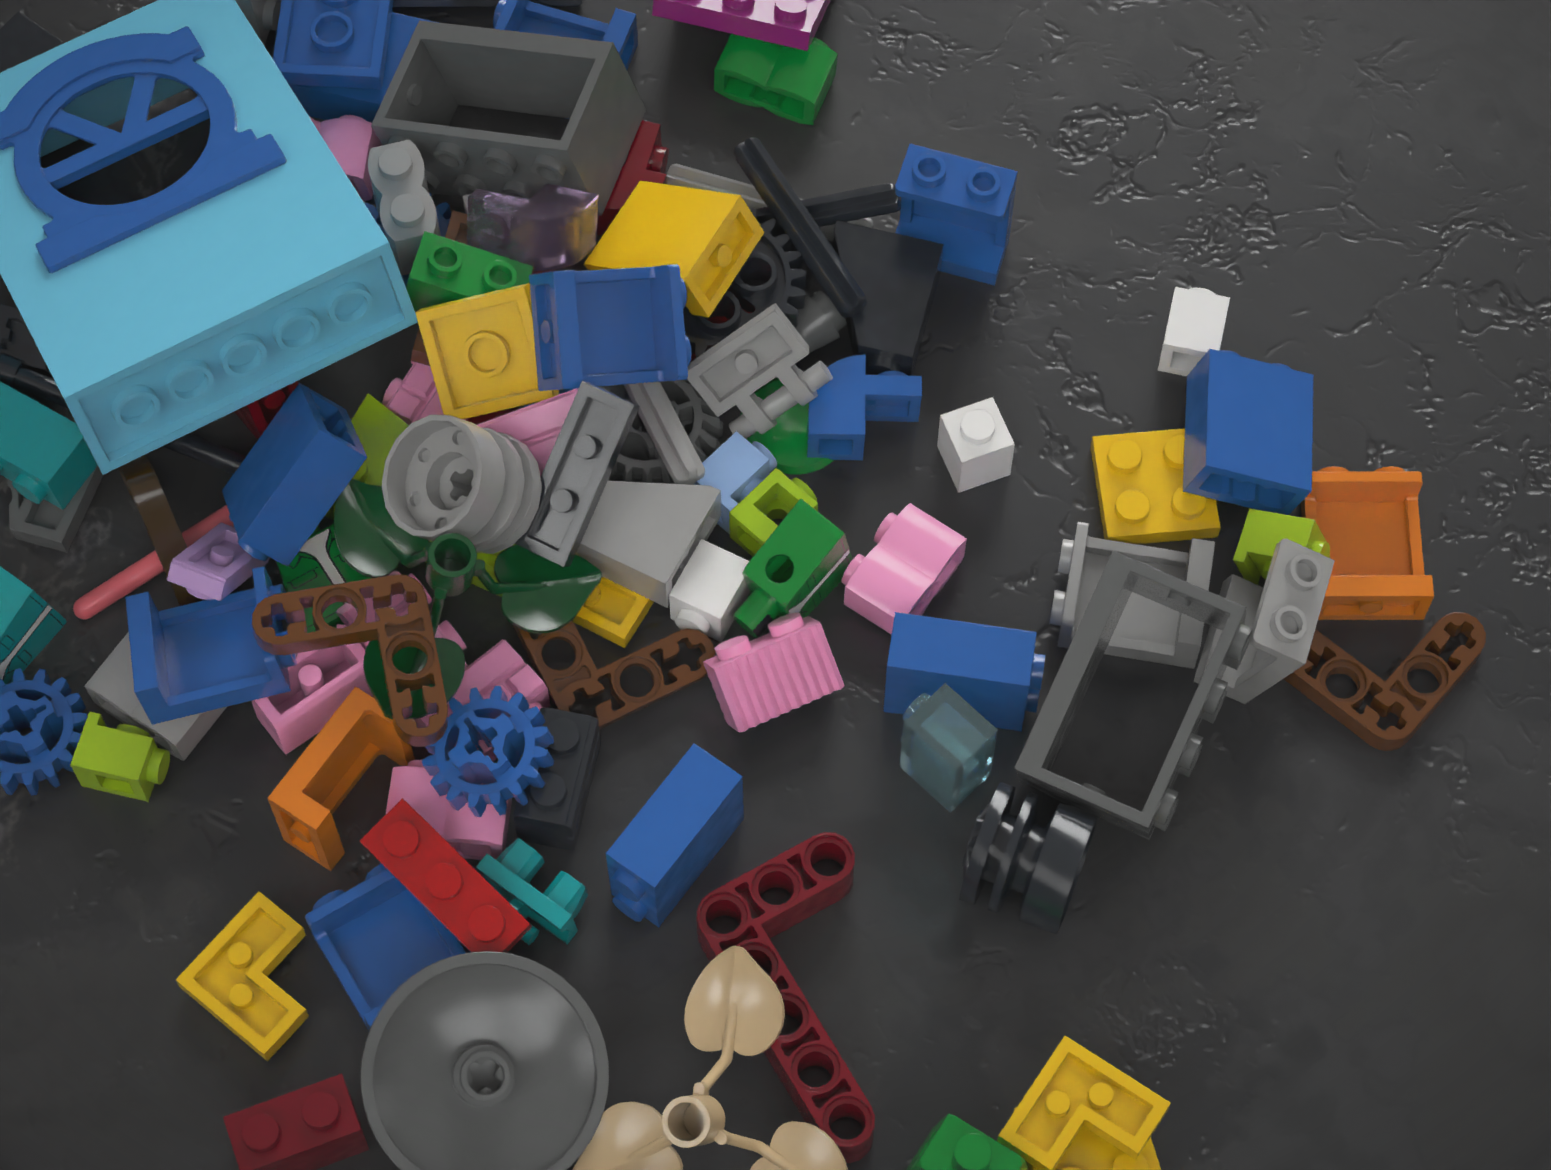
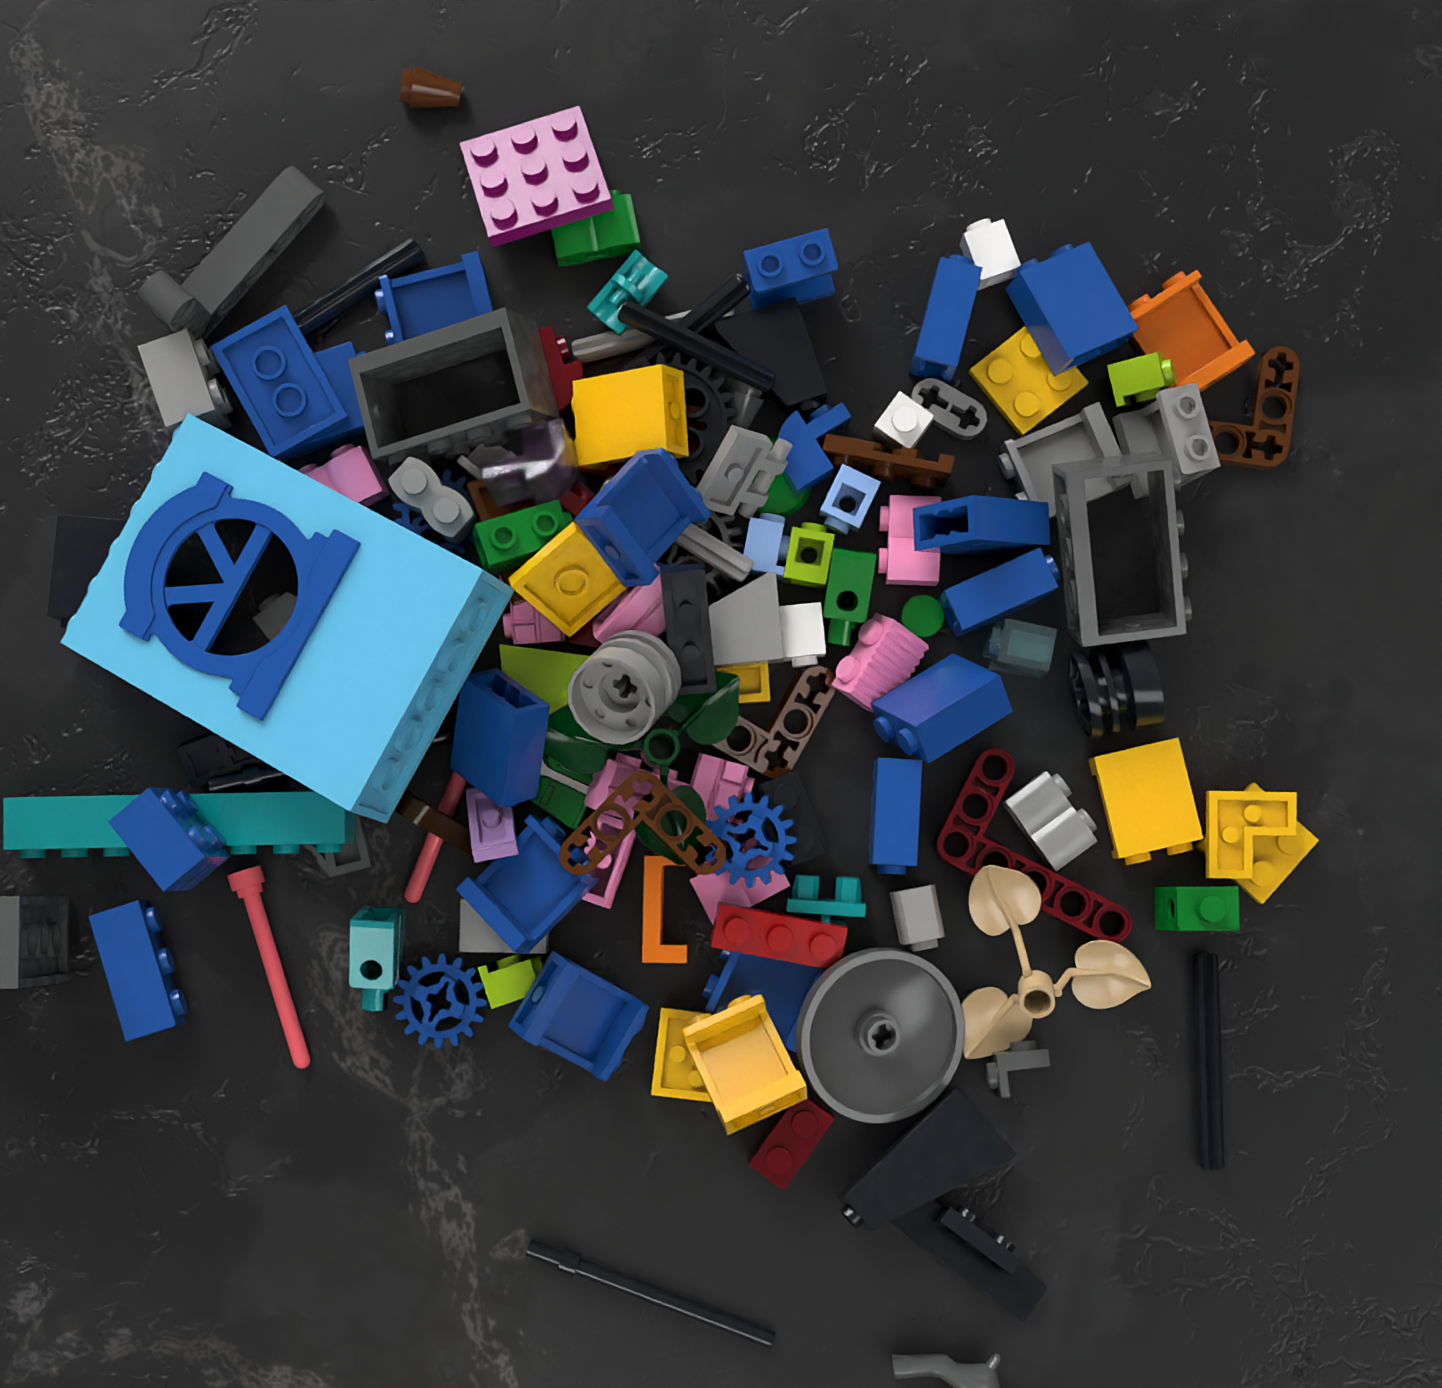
camera: 30 degrees left, 20 degrees up
(160, 836) = (579, 1016): none -> blue panel
(302, 996) = (743, 1063): none -> yellow panel
(622, 964) = (917, 917): none -> light grey brick
(783, 135) = (634, 281): none -> teal hips
(807, 746) = (941, 708): none -> blue brick
(855, 967) = (1050, 820): none -> light grey brick
(861, 661) = (922, 616): none -> green tile
(863, 470) = (852, 485): none -> light blue brick
(965, 500) = (885, 466): none -> reddish brown wing
(984, 1014) = (1147, 800): none -> yellow panel
(986, 575) = (981, 526): none -> blue brick
(1051, 459) = (953, 400): none -> light grey beam
(1094, 360) = (946, 318): none -> blue brick

